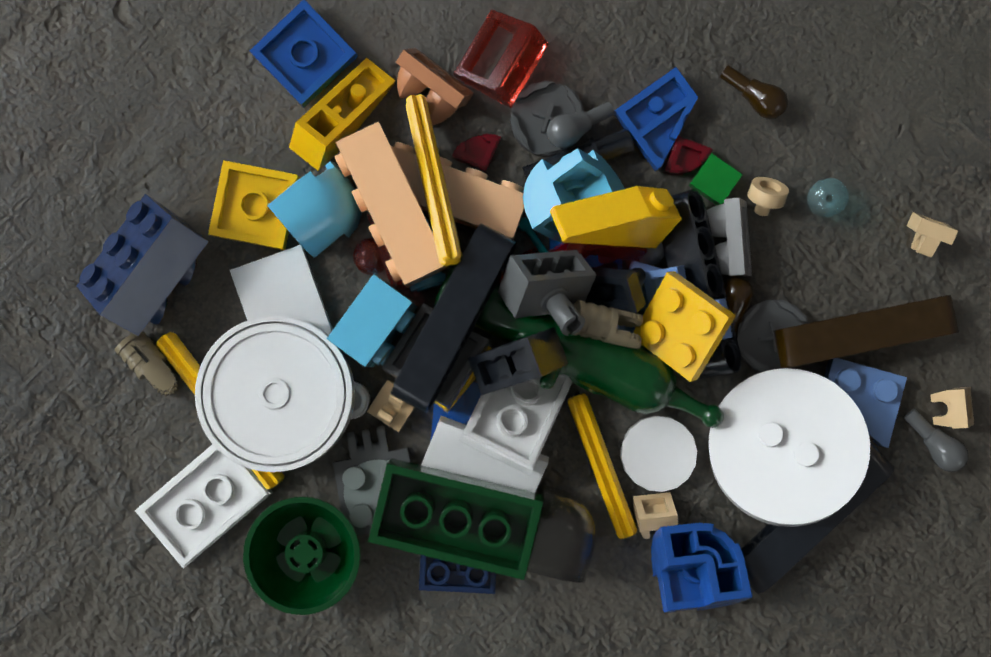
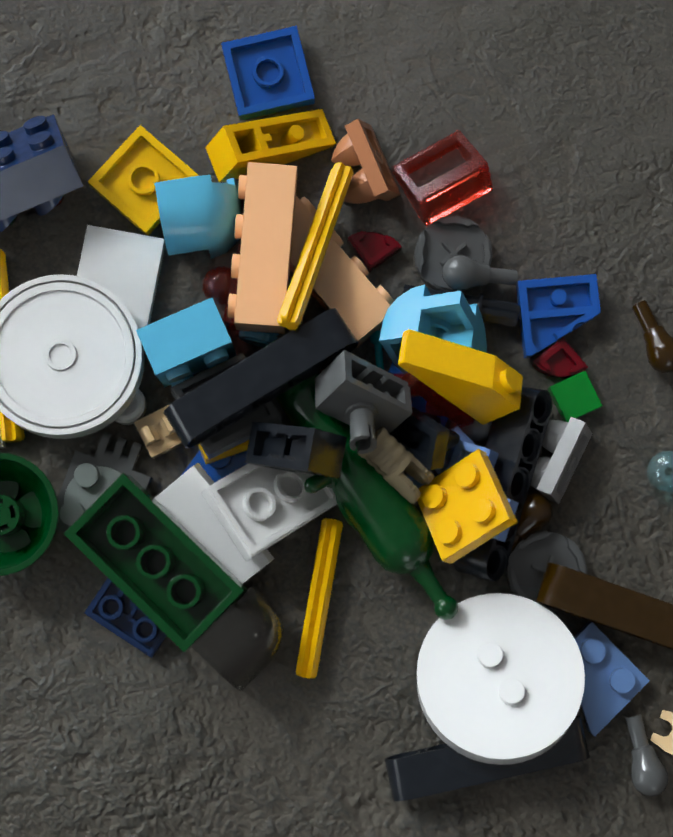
camera: 25 degrees right, 5 degrees down
(654, 512) = (342, 669): tan tile -> none
(658, 453) = (378, 617): white tile -> none
(698, 568) = (352, 742): blue brick -> none
(767, 194) = (614, 437): tan tile -> none

